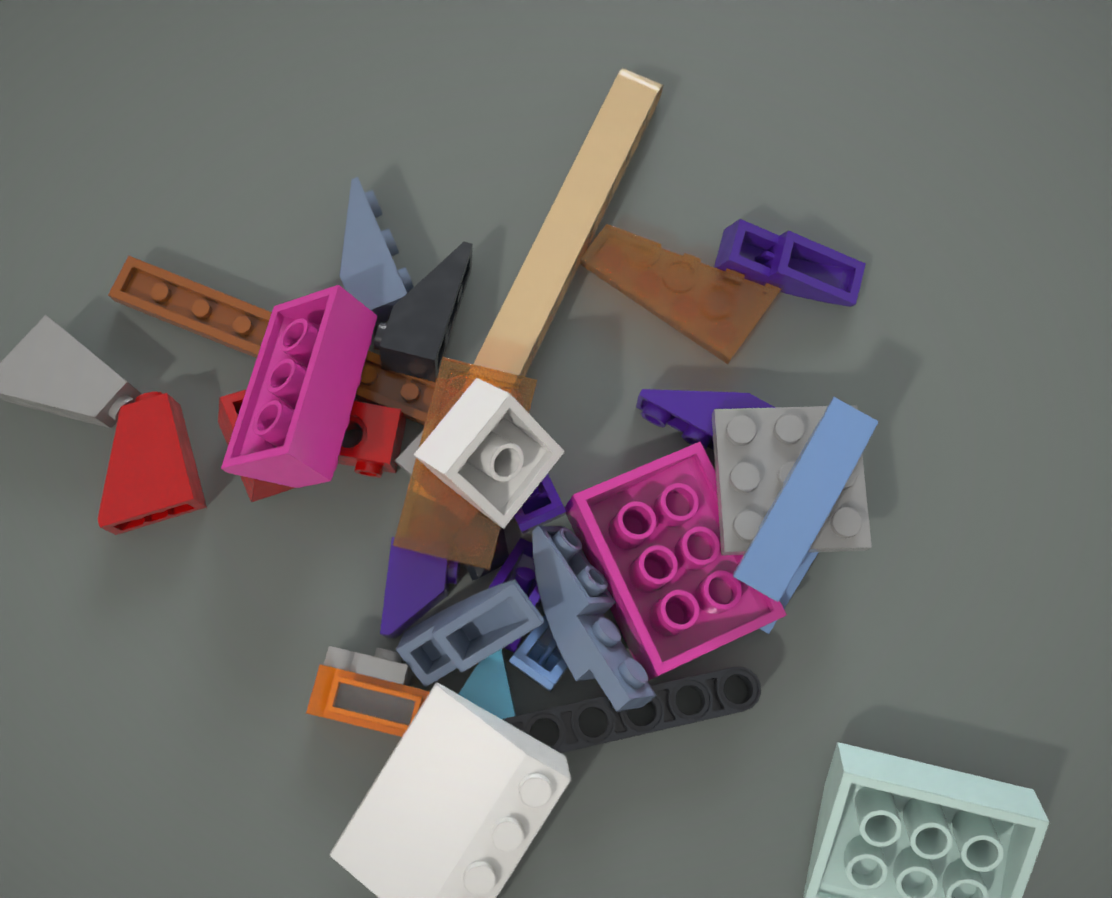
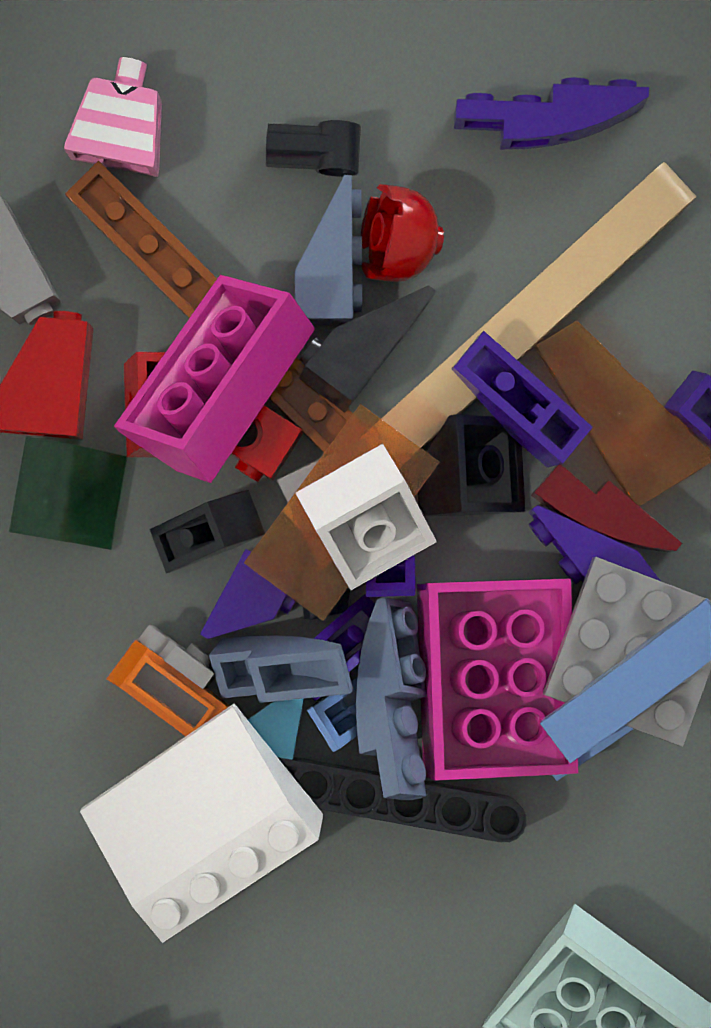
camera: 25 degrees right, 10 degrees up
(135, 219) = (119, 122): none -> bright pink torso
(206, 557) = (68, 493): none -> clear green slope
(318, 173) = (328, 148): none -> black piece
(350, 538) = (207, 530): none -> black slope
(421, 211) = (399, 234): none -> red cylinder
(527, 64) = (571, 114): none -> dark purple slope
(573, 383) = (476, 470): none -> black slope
(588, 305) = (521, 402): none -> dark purple slope
(705, 371) = (604, 511): none -> dark red slope

